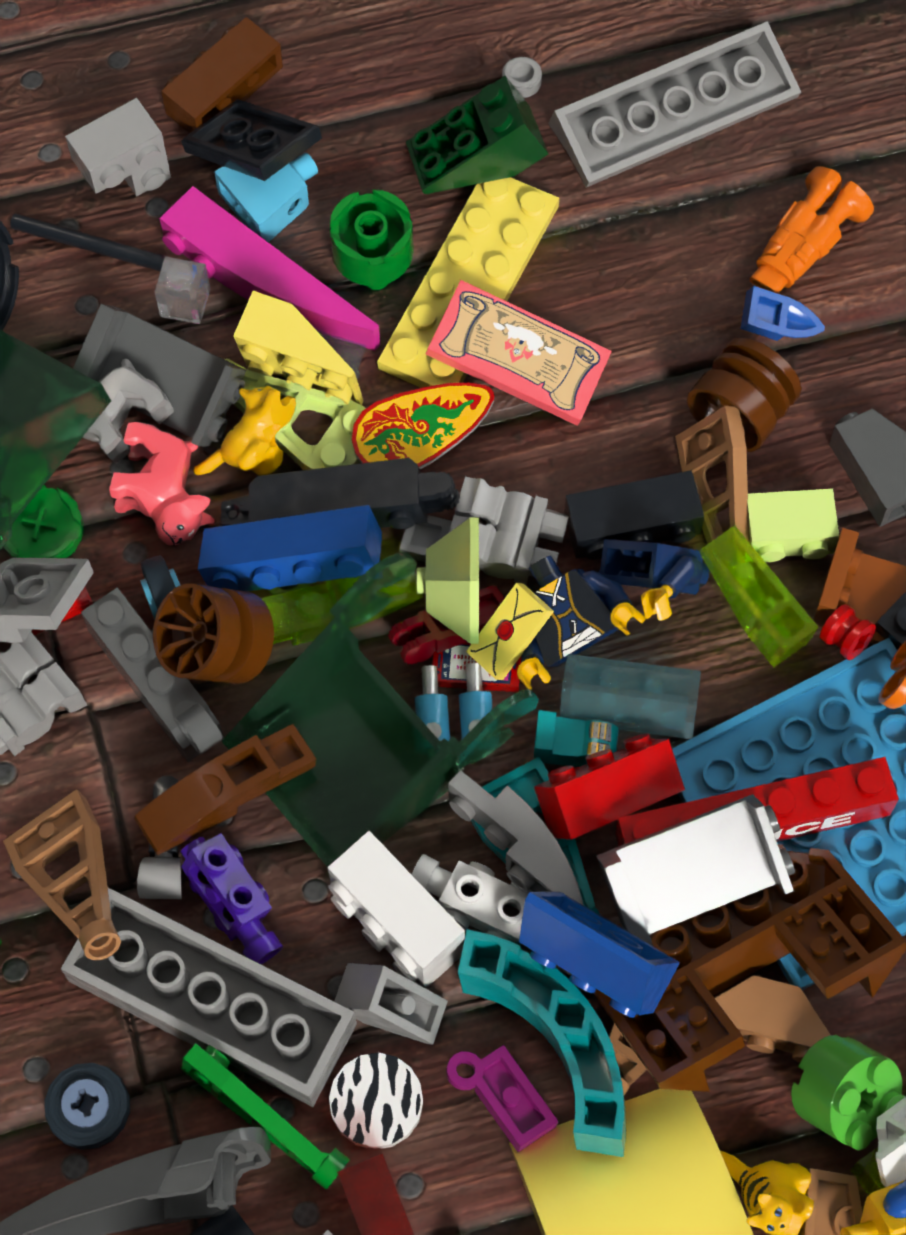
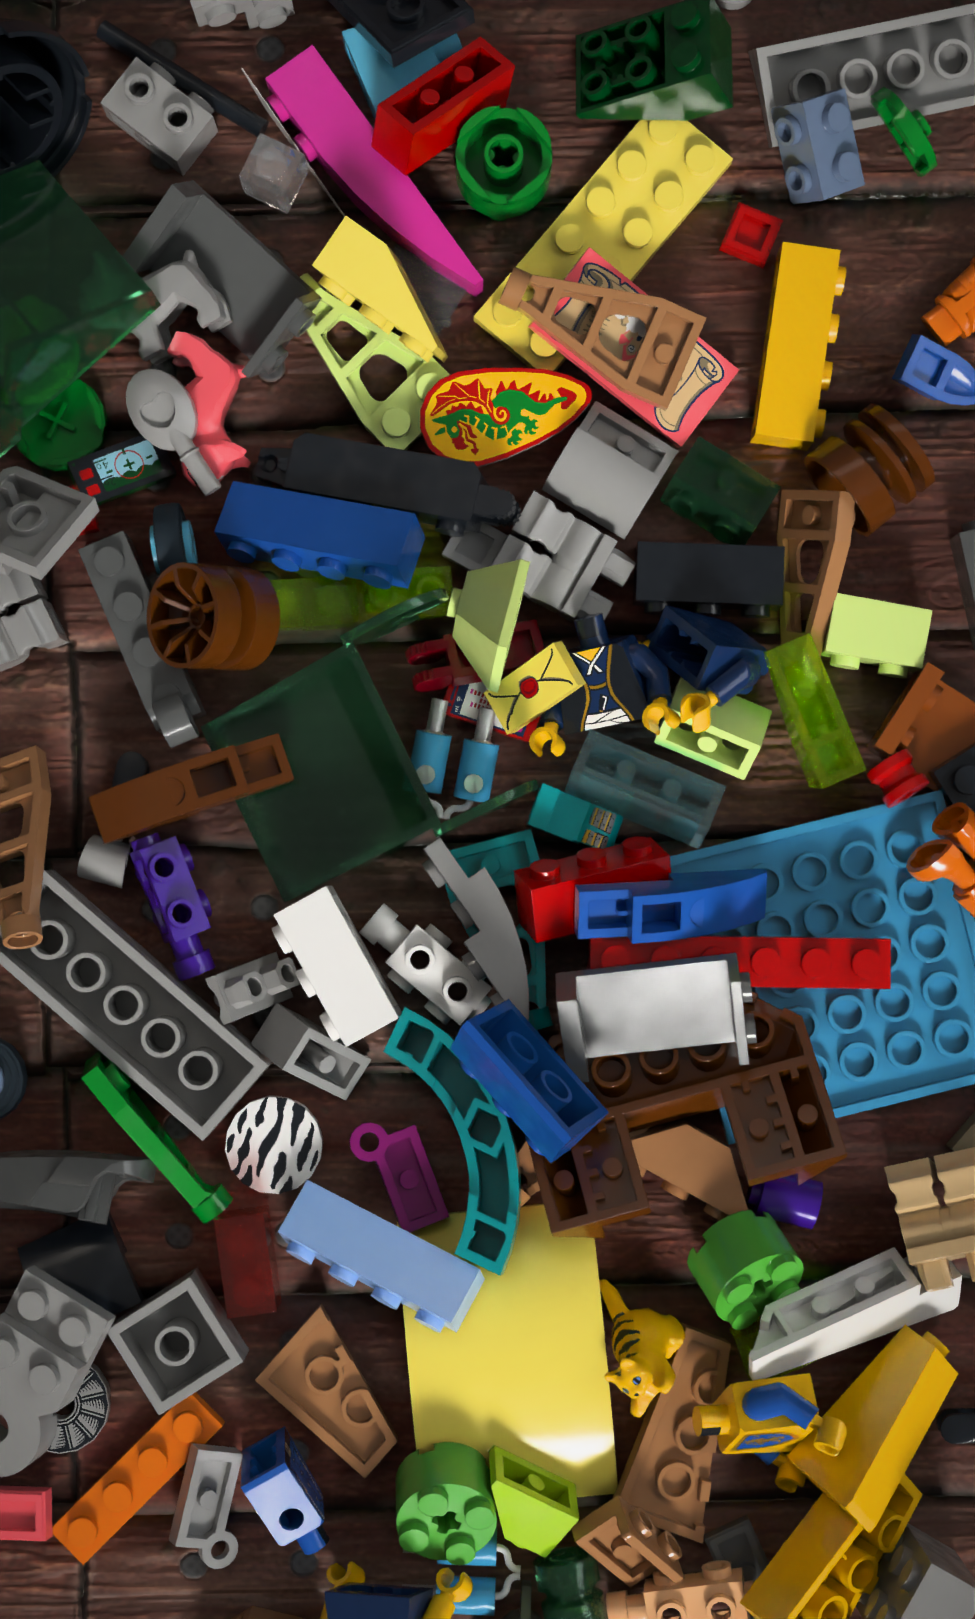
camera: 10 degrees right, 20 degrees up
(76, 269) = (160, 114): none -> light grey brick
(108, 544) = (121, 470): none -> tile
(137, 488) = (169, 421): none -> light grey piece
(170, 250) = (275, 119): none -> white sticker
(252, 441) = (309, 386): yellow animal -> none
(303, 206) = (435, 106): none -> red brick
(322, 953) = (253, 986): none -> light grey hips
(505, 1167) = (380, 1256): none -> light blue brick
(524, 450) = (609, 469): none -> light grey brick
(544, 343) = (661, 355): none -> medium nougat plate
(590, 252) = (751, 235): none -> red tile
(622, 448) = (719, 493): none -> clear green bracket
(625, 171) = (818, 147): none -> sand blue bracket
(654, 324) = (796, 346): none -> yellow brick
(680, 778) = (673, 908): none -> blue slope
(685, 637) = (728, 743): none -> yellowish green brick
(696, 144) = (907, 129): none -> green plate
(868, 1023) = (787, 1200): none -> dark purple brick

